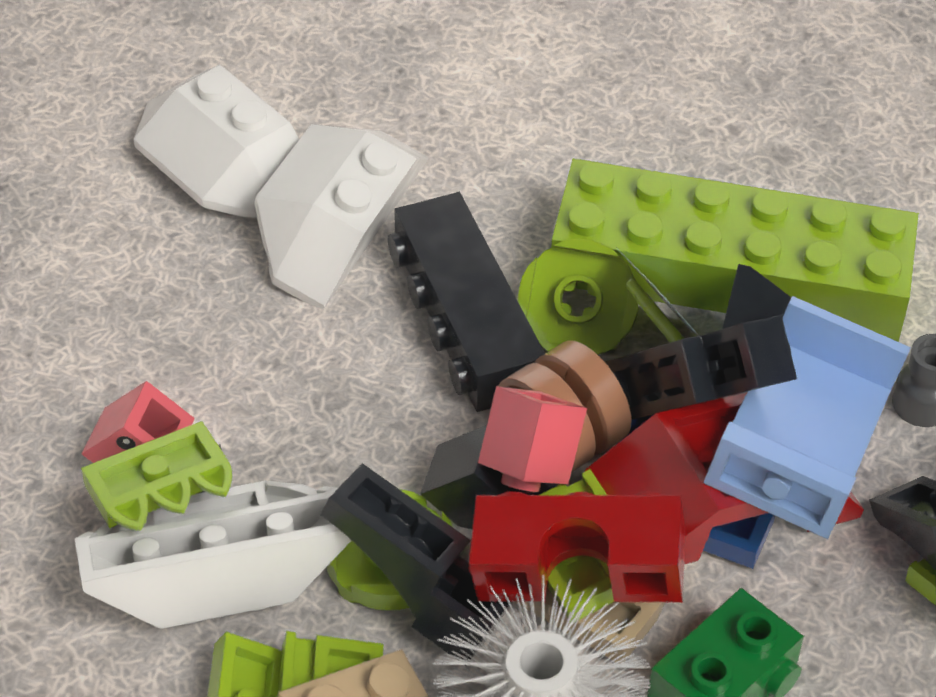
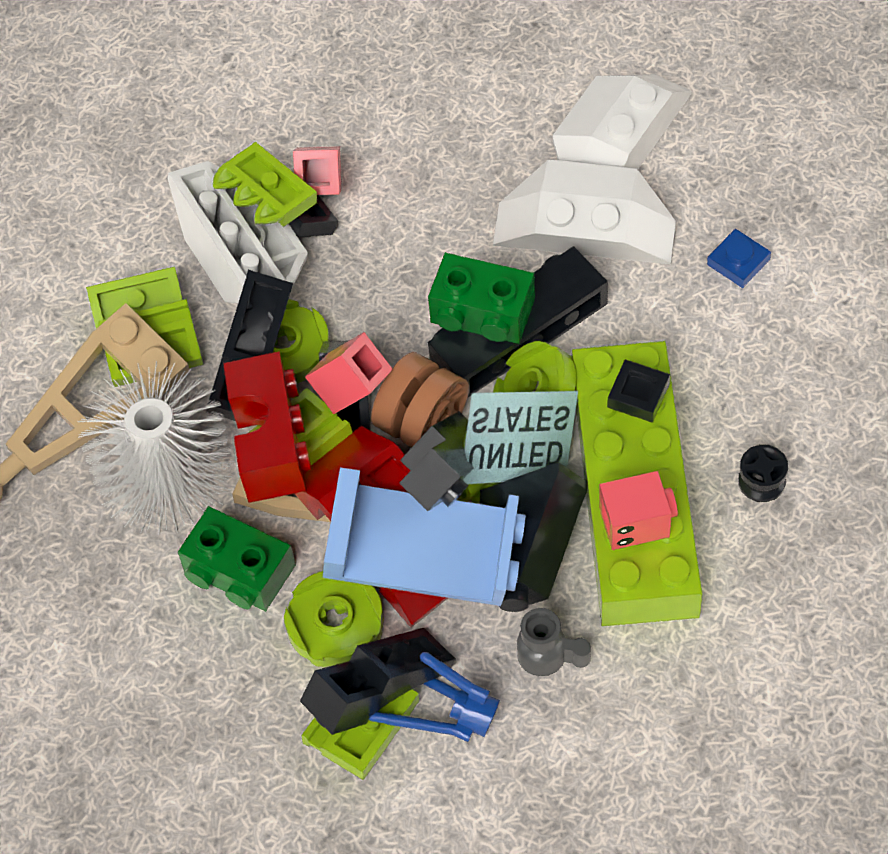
camera: 80 degrees right, 10 degrees up
(450, 99) = (739, 258): none -> blue plate
(454, 293) = (481, 298): none -> green brick
(656, 177) = (638, 390): none -> black plate
(750, 149) = (770, 465): none -> black wheel
(823, 217) = (636, 510): none -> coral brick
(830, 618) = (329, 644): none -> lime plate

